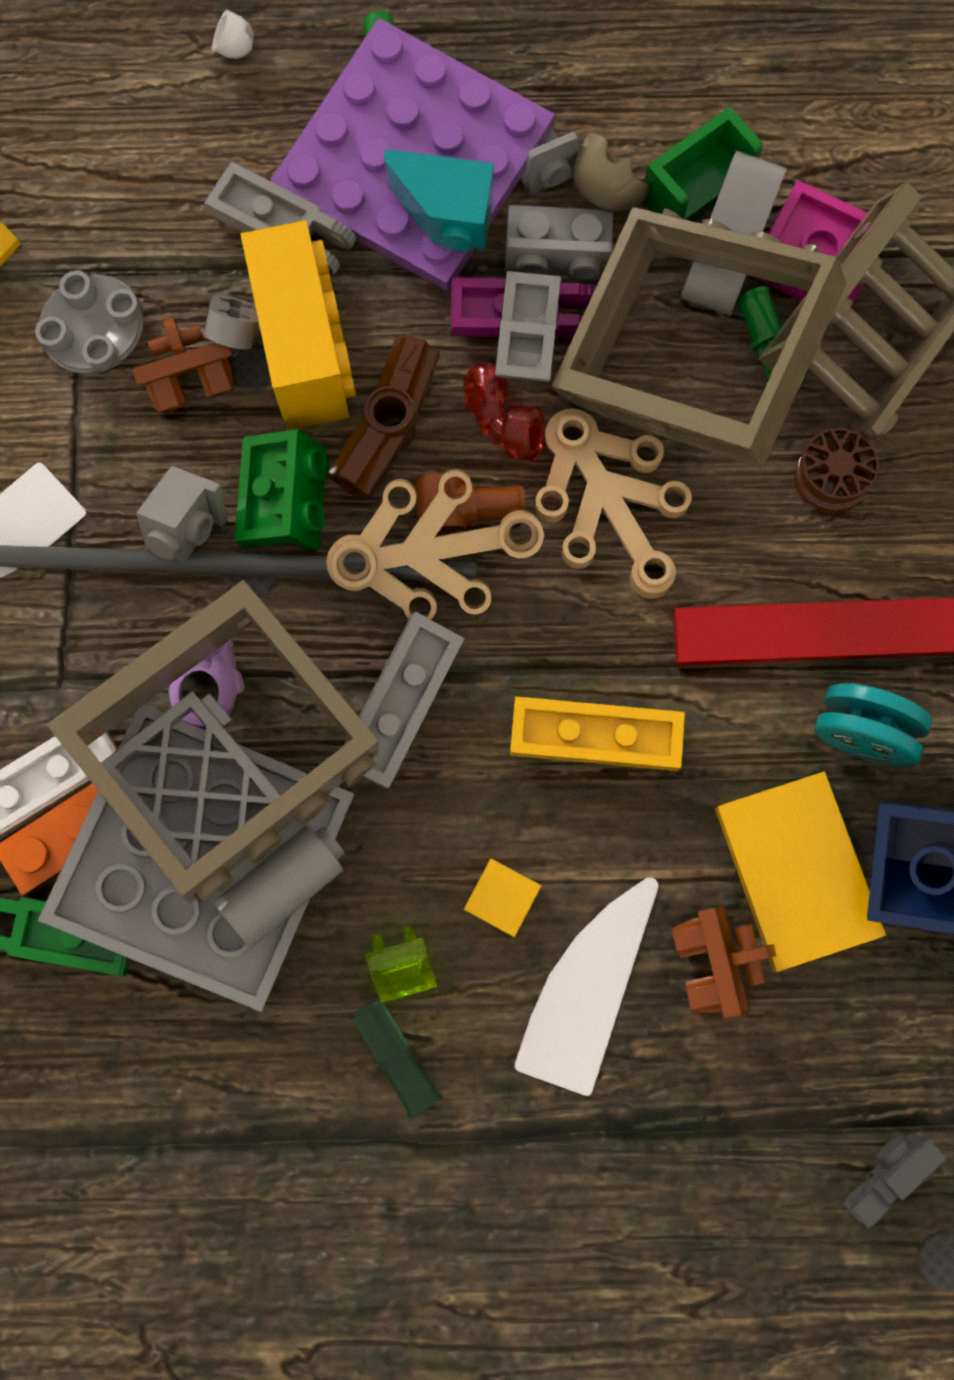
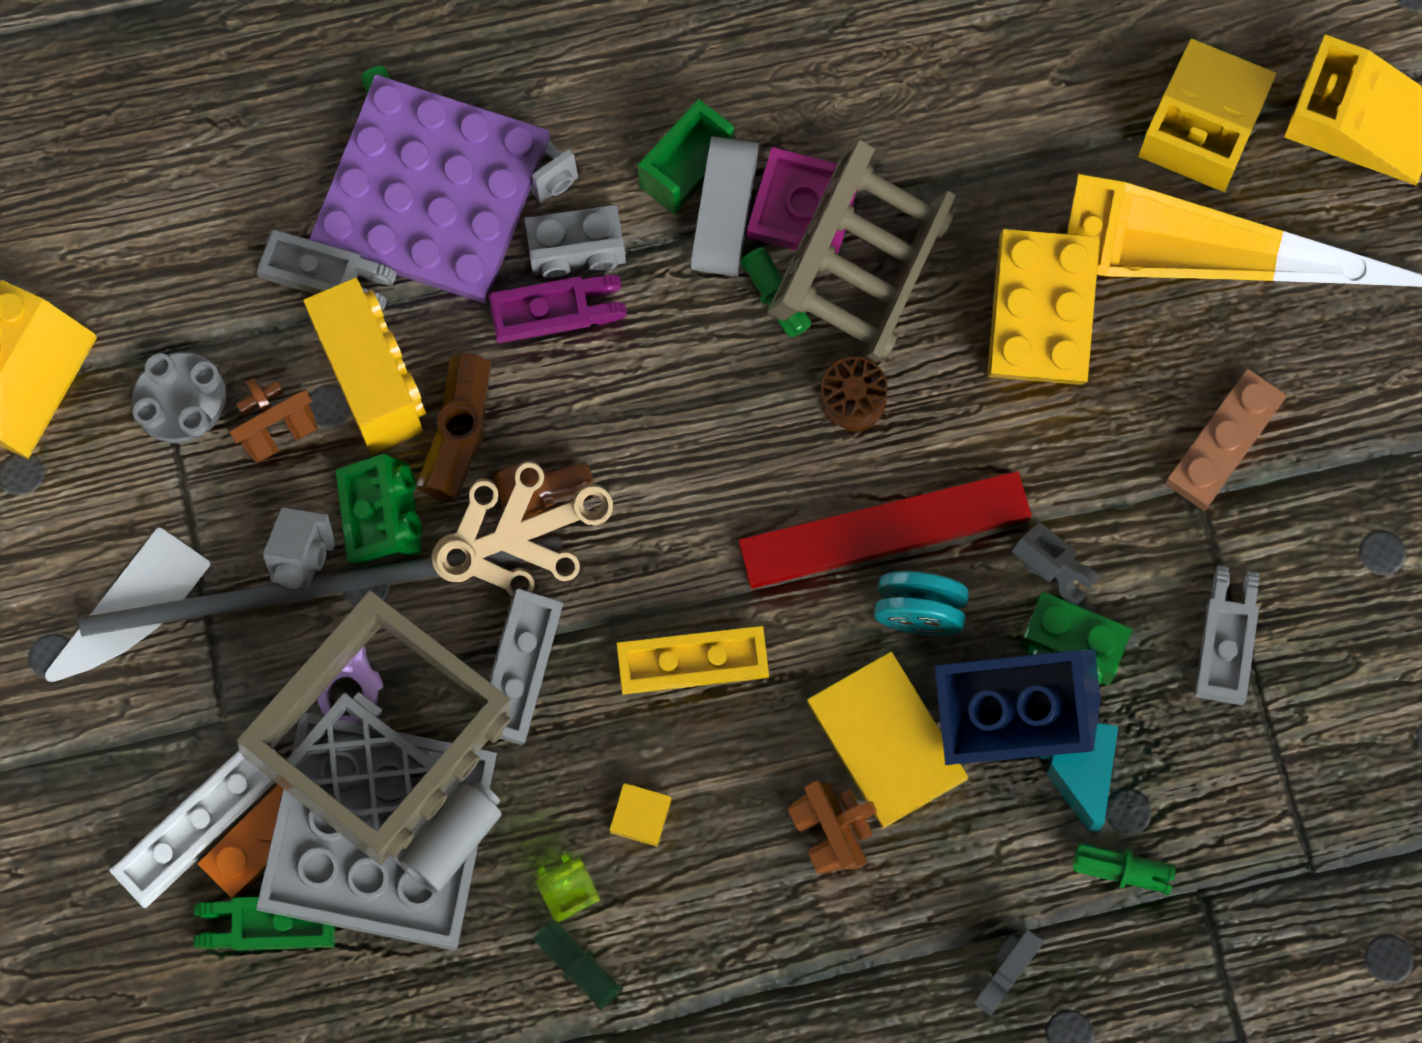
camera: 10 degrees left, 5 degrees down
(231, 322) = (306, 372): light grey beam -> none
(233, 36) = (247, 114): white hinge -> none
(444, 196) = (468, 228): teal slope -> none
(519, 430) = (573, 416): clear red arm -> none
(528, 326) = (563, 325): light grey slope -> none
(584, 995) = (726, 881): white sticker -> none
(603, 182) = (602, 185): dark tan hair -> none
(607, 493) = (662, 453): tan plant -> none
(717, 246) = (632, 286): dark tan window -> none

